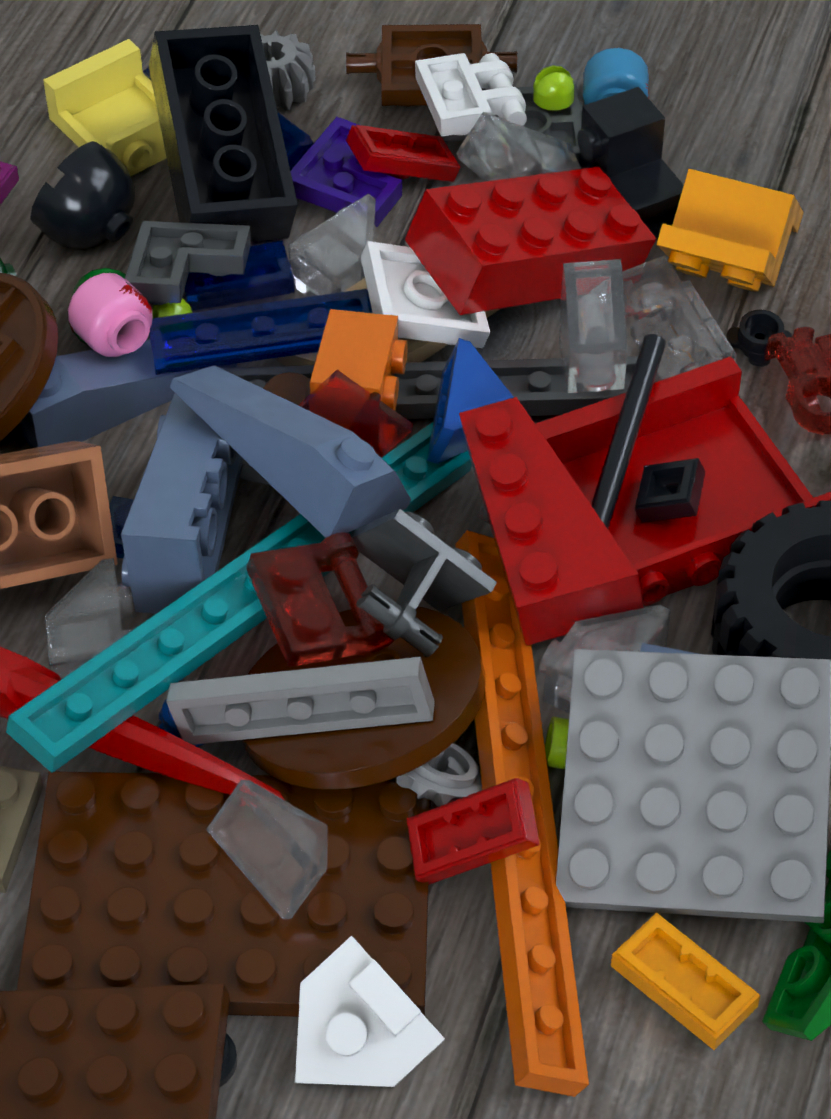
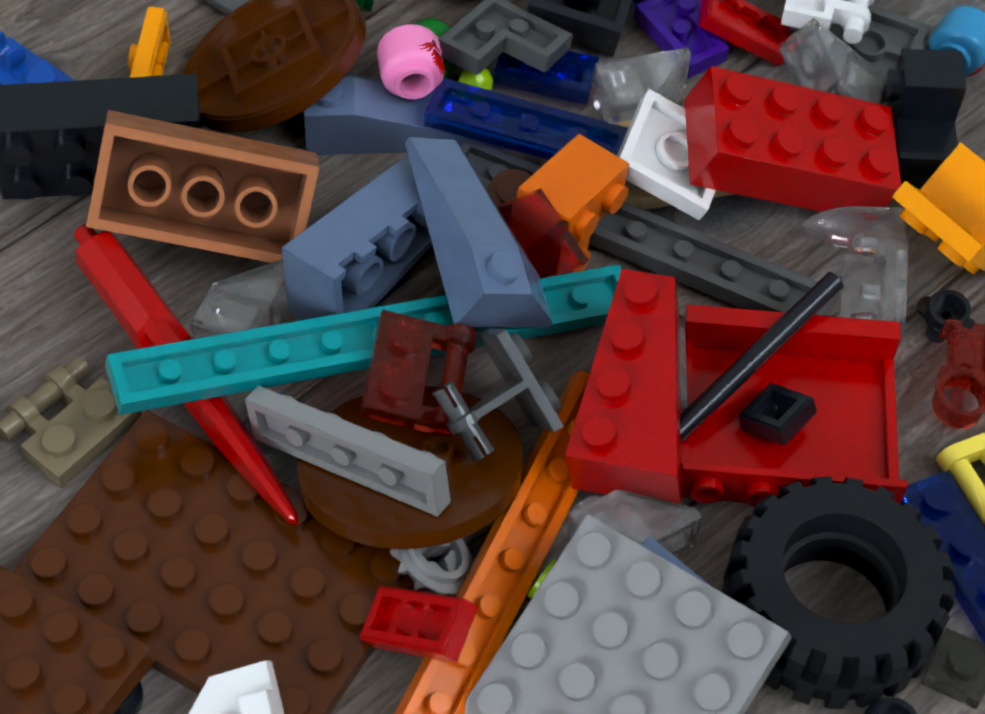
camera: 25 degrees right, 5 degrees up
(272, 845) = (263, 554): clear slope -> none
(464, 385) = (654, 252): blue slope -> none
(553, 88) = (904, 22): lime hinge -> none
(593, 326) = (789, 244): clear slope -> none

